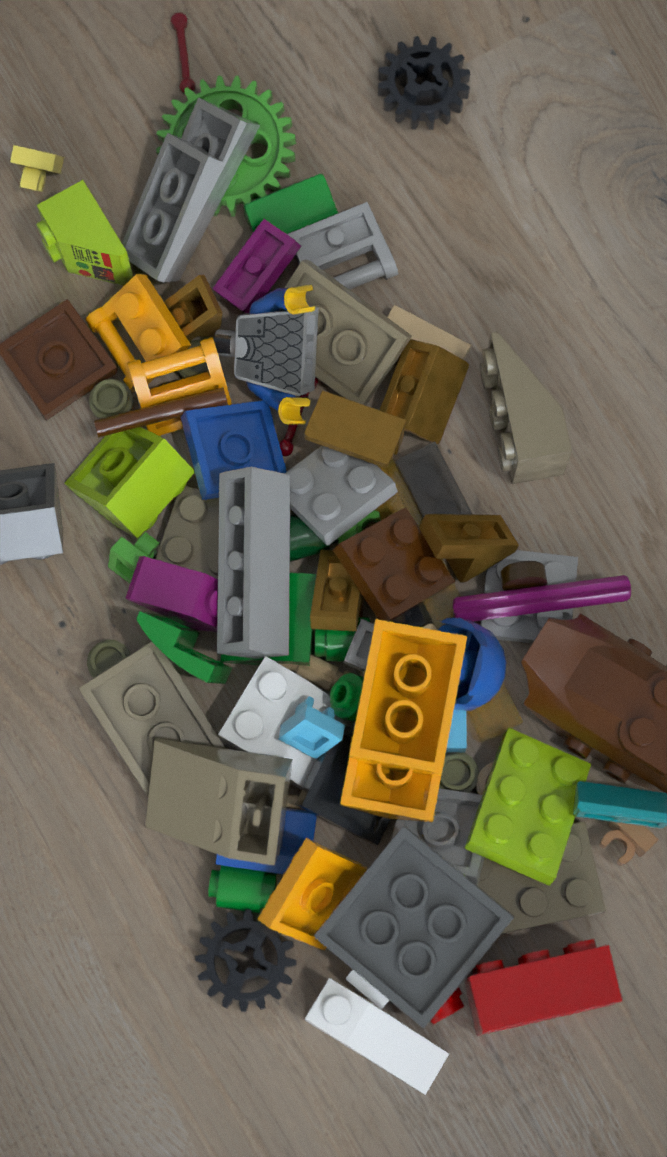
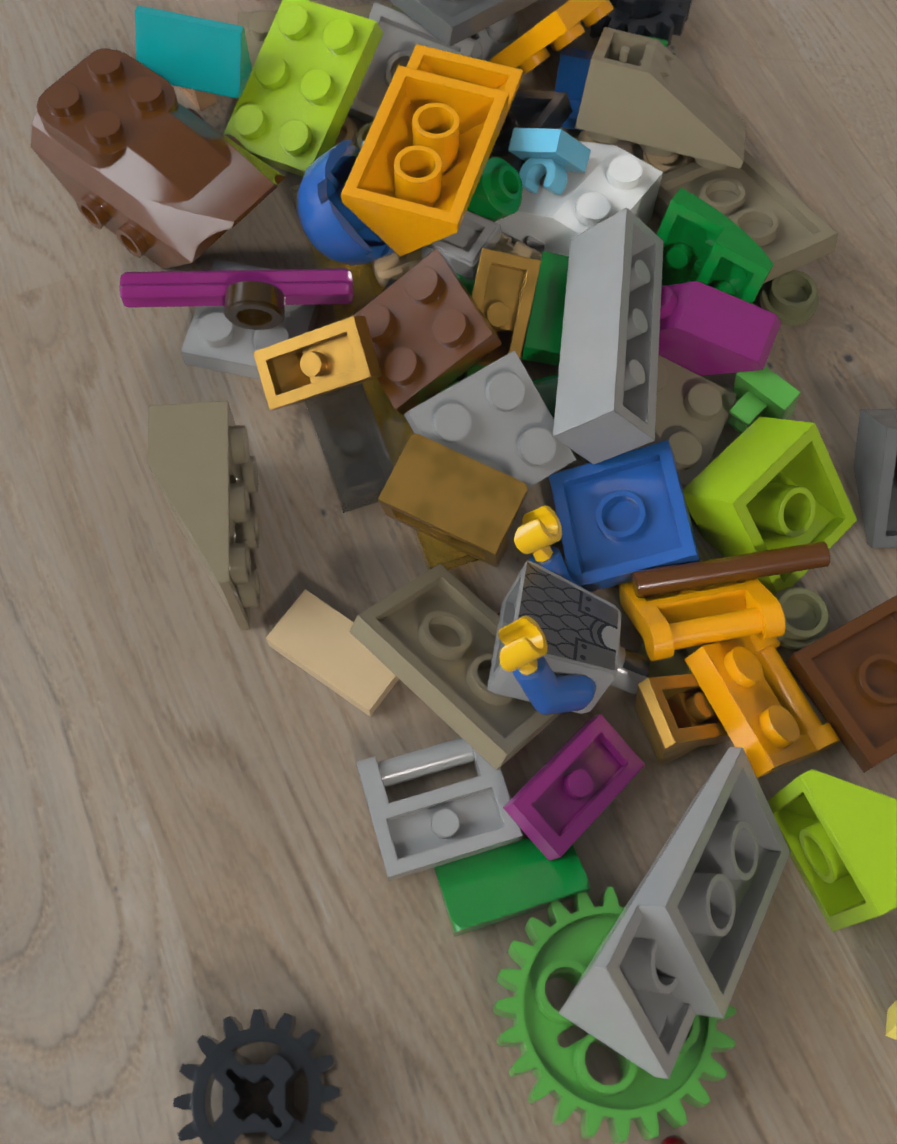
camera: 175 degrees left, 10 degrees down
(425, 389) = (349, 570): pearl gold panel -> none

